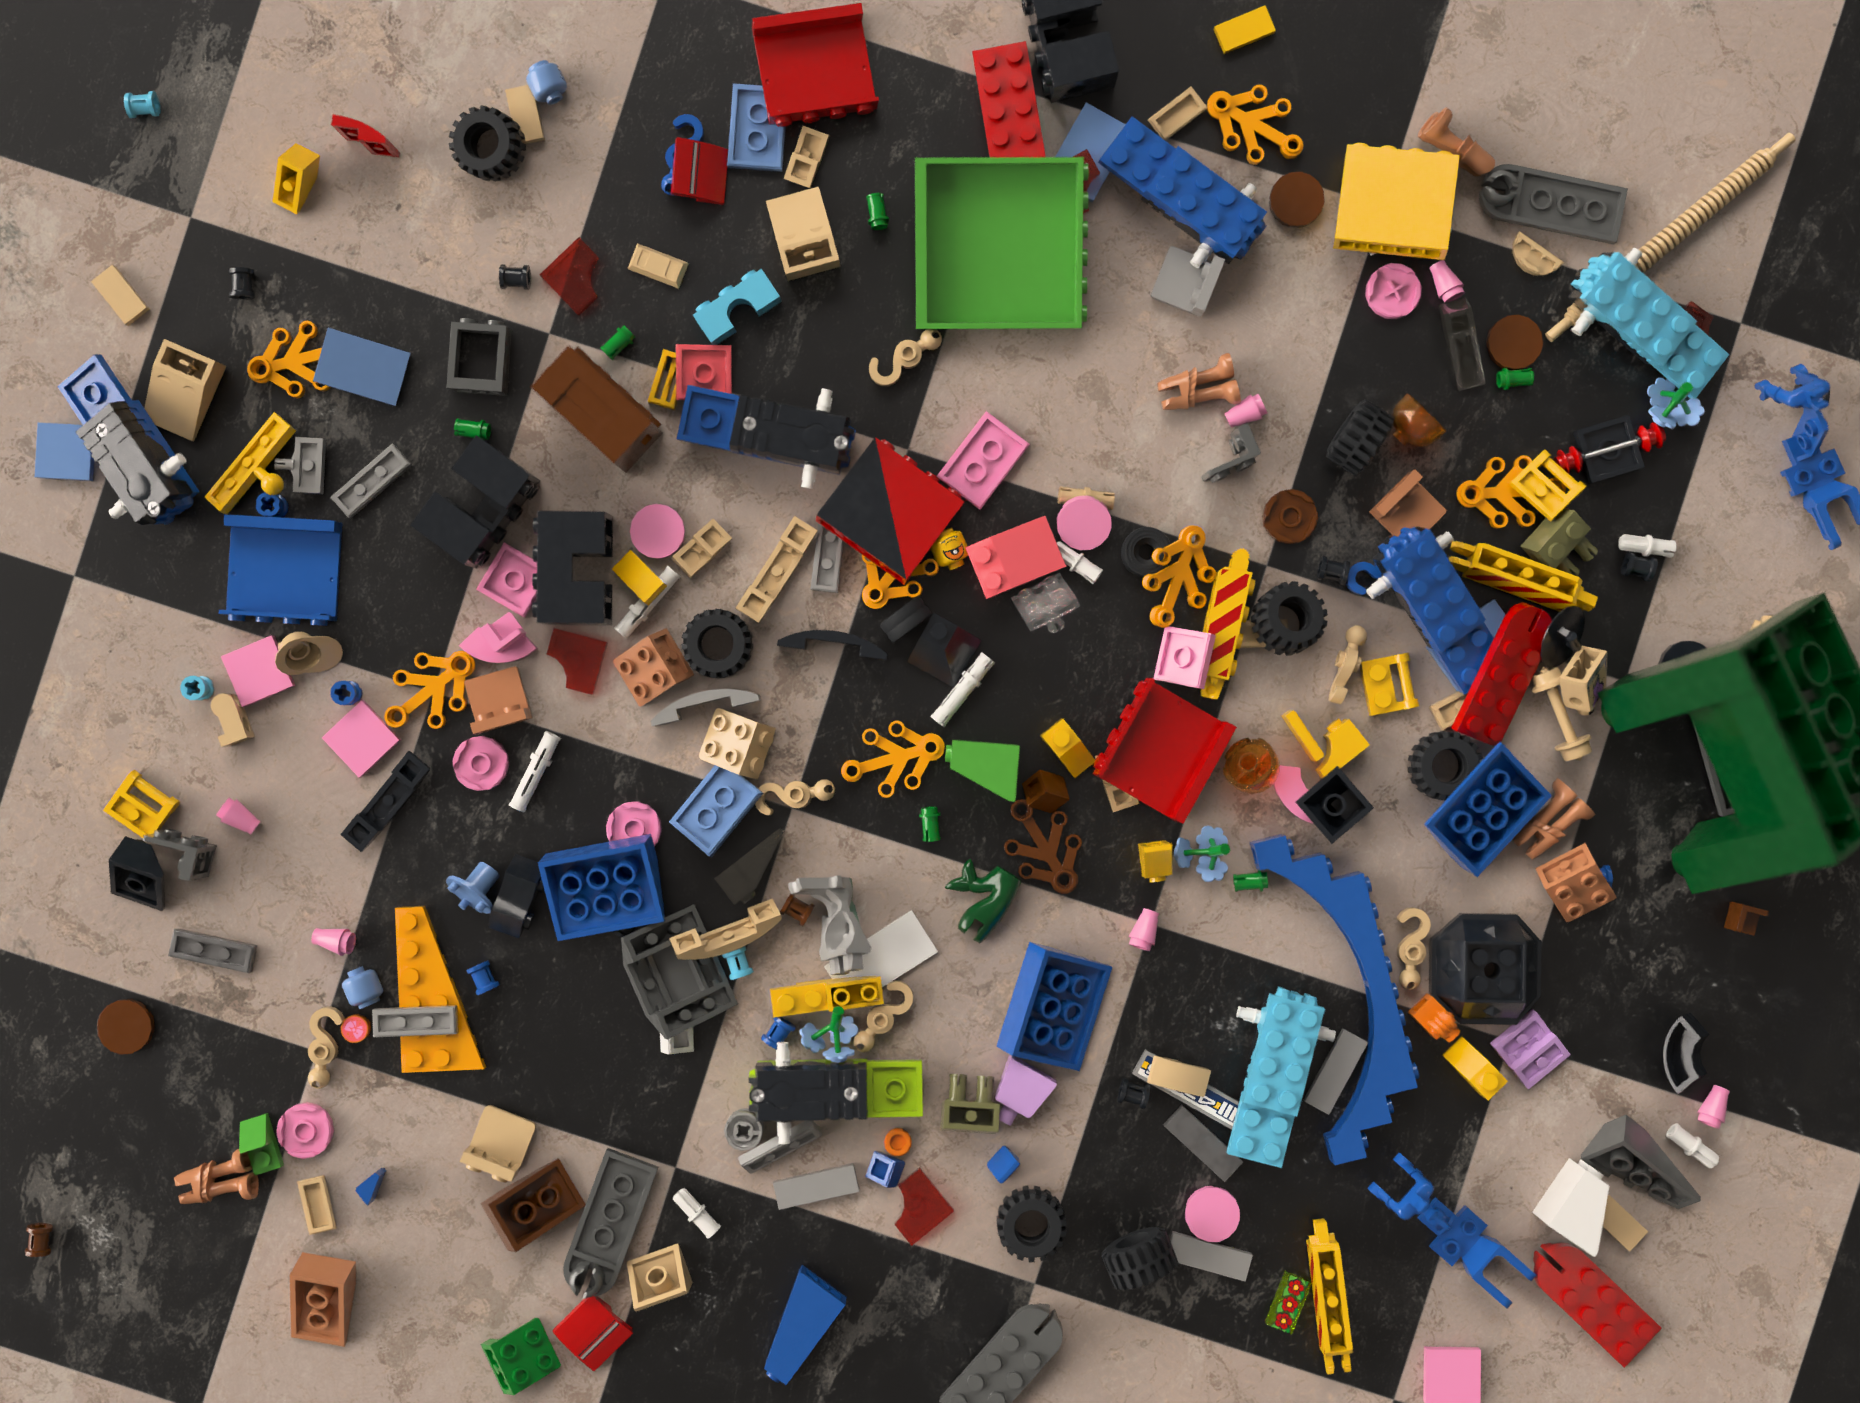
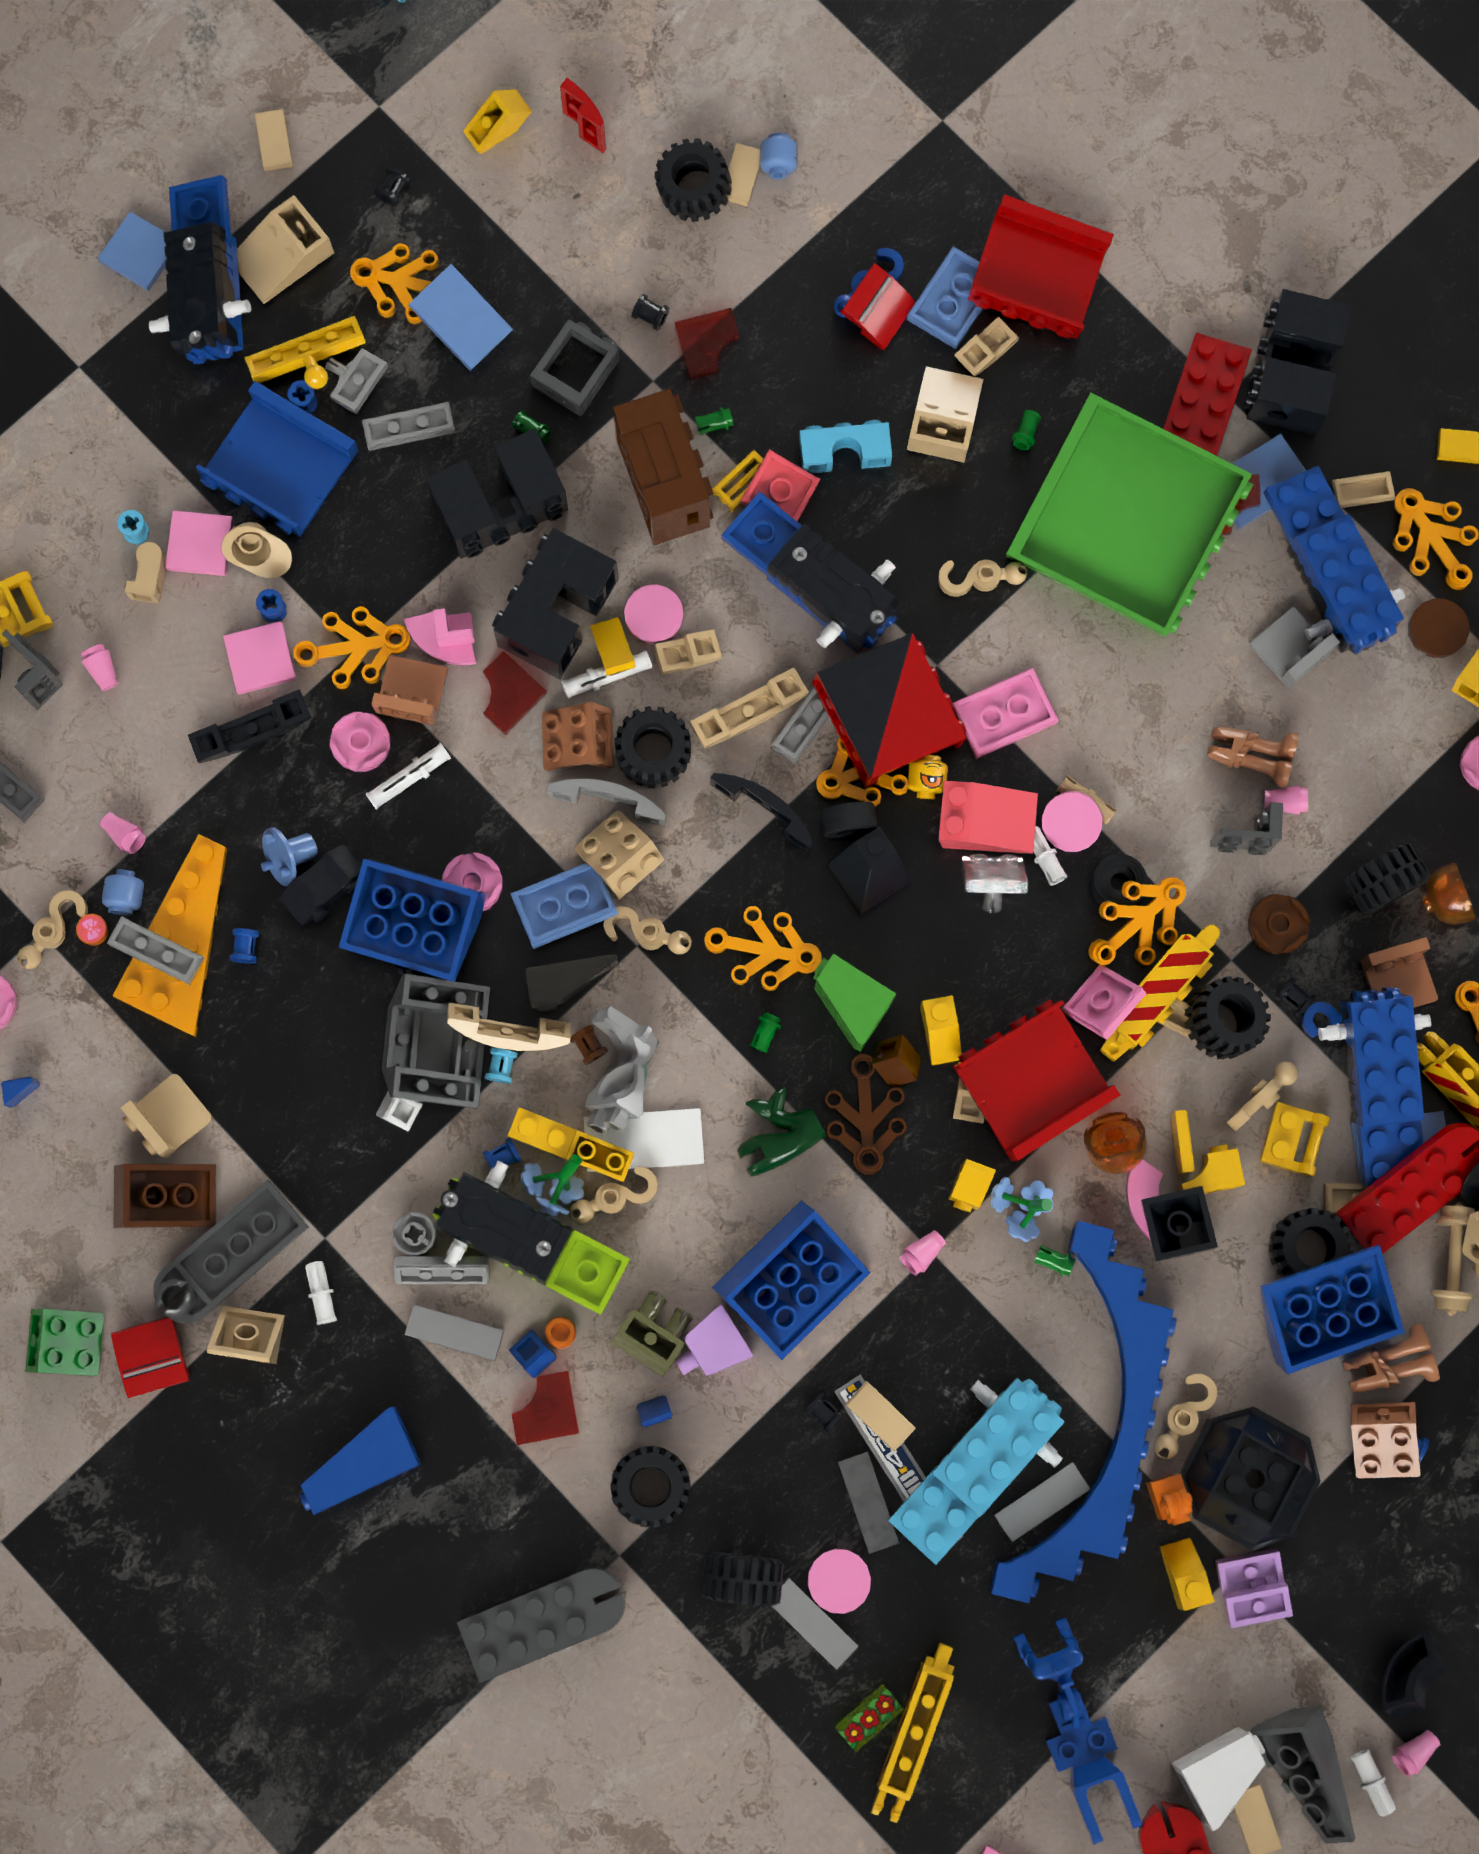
camera: 20 degrees right, 10 degrees down
(510, 580) = (487, 585): bright pink tile -> none
(658, 266) = (790, 373): tan tile -> none
(970, 680) = (867, 919): white pin -> none

